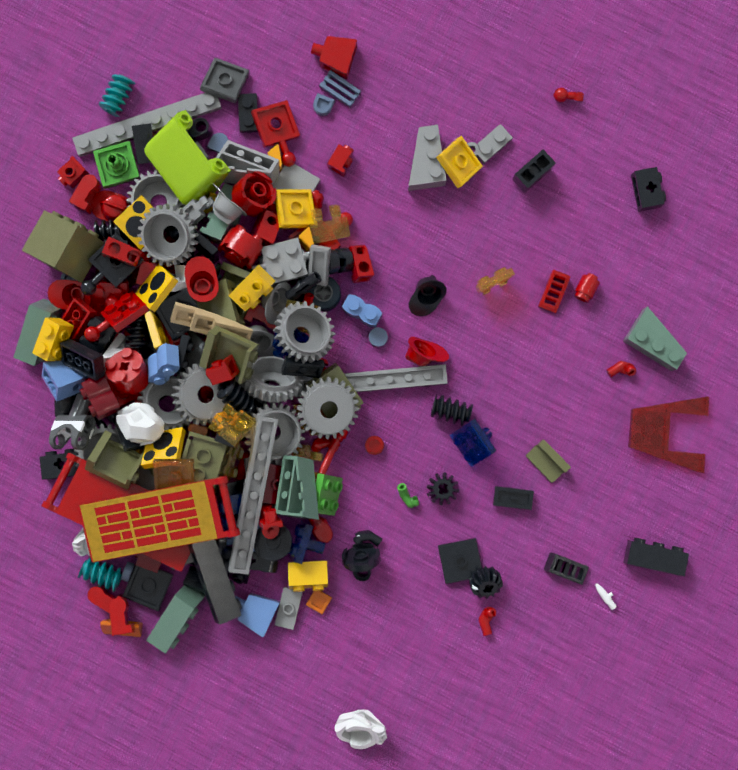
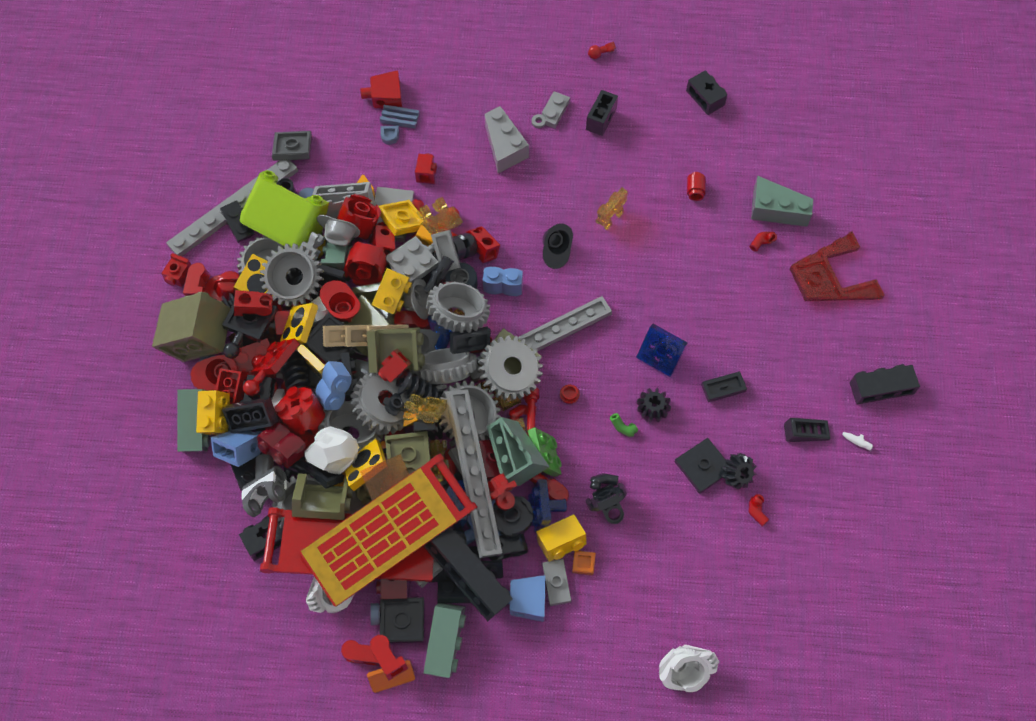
camera: 25 degrees left, 20 degrees down
(101, 573) = (347, 626): teal piece -> none
(115, 94) = (195, 191): teal piece -> none
(116, 164) = (217, 249): bright green plate -> none
(204, 403) = (391, 408): none -> black plate
(246, 104) = (324, 165): black plate -> none
(270, 135) = (353, 171): red plate -> none
(378, 337) = (527, 299): sand blue tile -> none
(423, 352) = (576, 295): red piece -> none
(451, 410) = (627, 331): black piece -> none
(459, 161) = (533, 128): yellow tile -> none
(547, 461) = (739, 341): olive panel -> none
(559, 275) = (668, 188): red slope -> none

